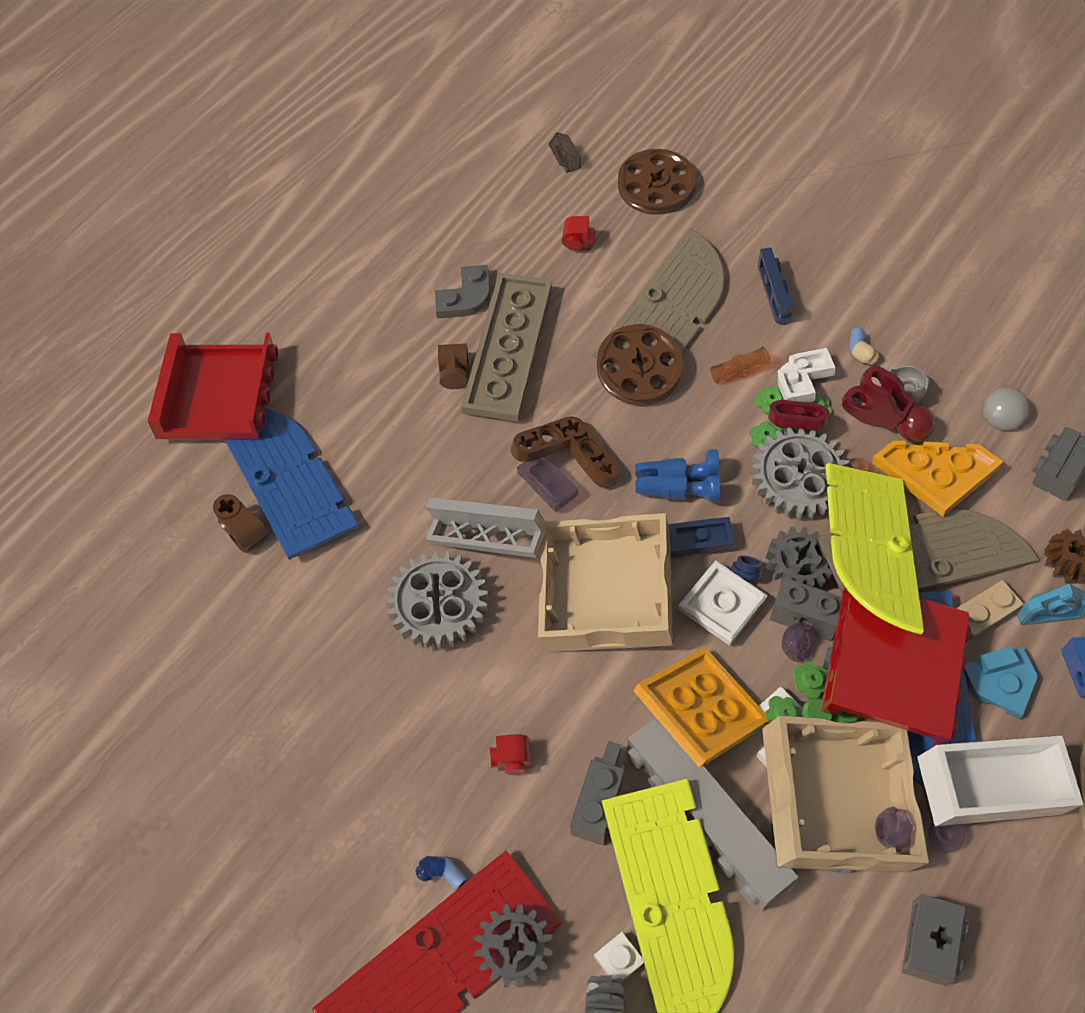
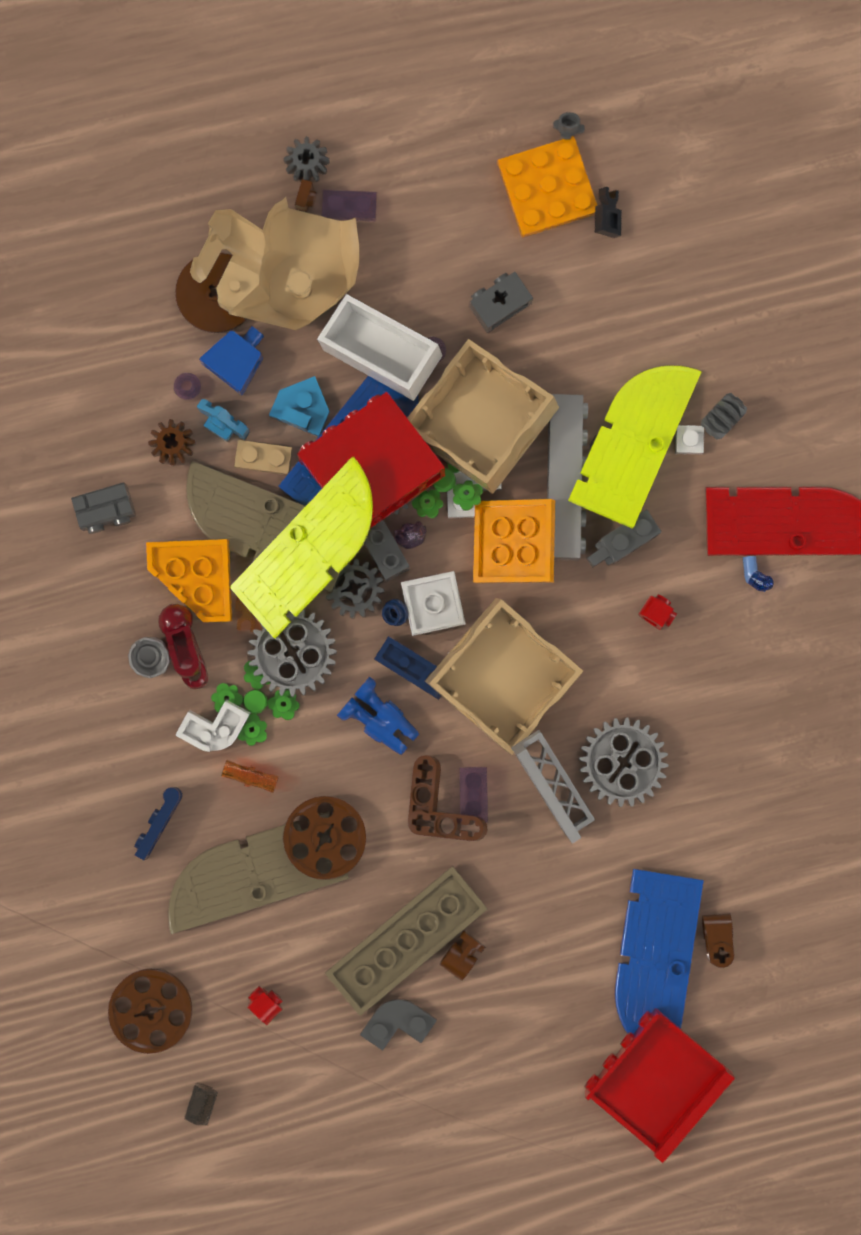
camera: 150 degrees left, 25 degrees up
(529, 948) = (754, 501): dark grey gear -> none
(798, 415) = (253, 695): dark red plate -> none
(861, 350) = (149, 716): tan arm -> none
(893, 828) = (468, 374): plate -> none
(1006, 408) = (95, 581): light grey hair -> none

